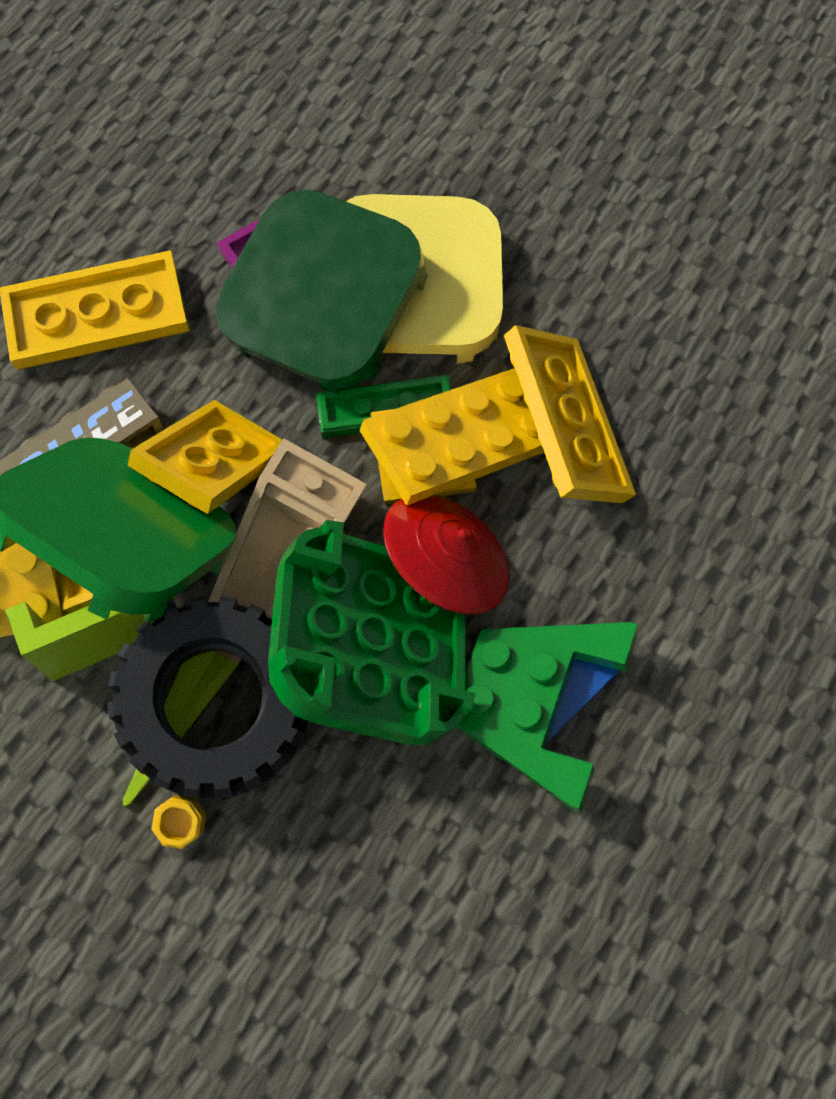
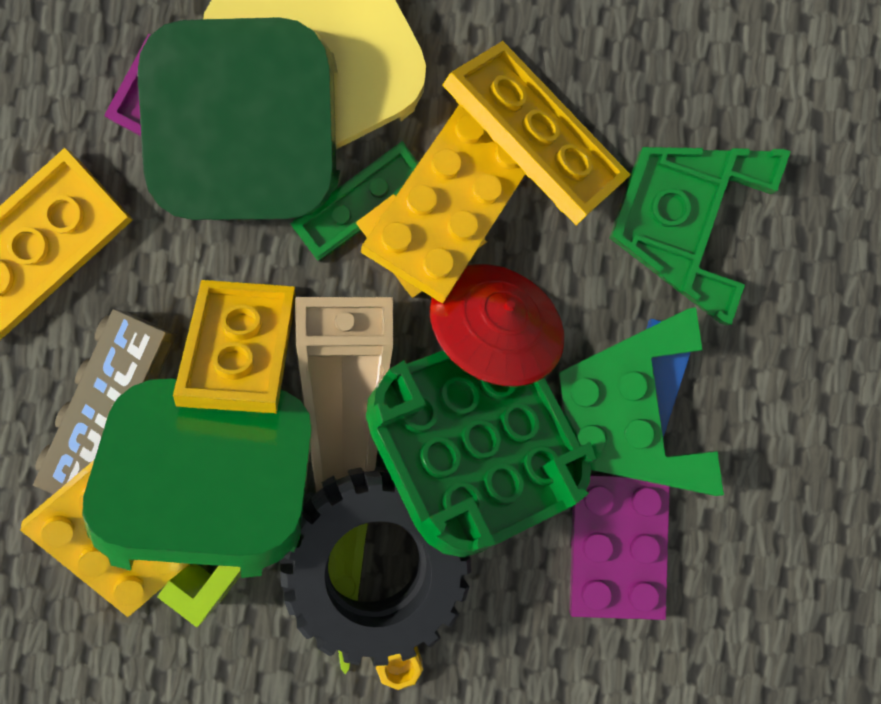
camera: 30 degrees left, 20 degrees up
(453, 825) = (620, 550): none -> magenta plate
(659, 541) = (673, 210): none -> green wing

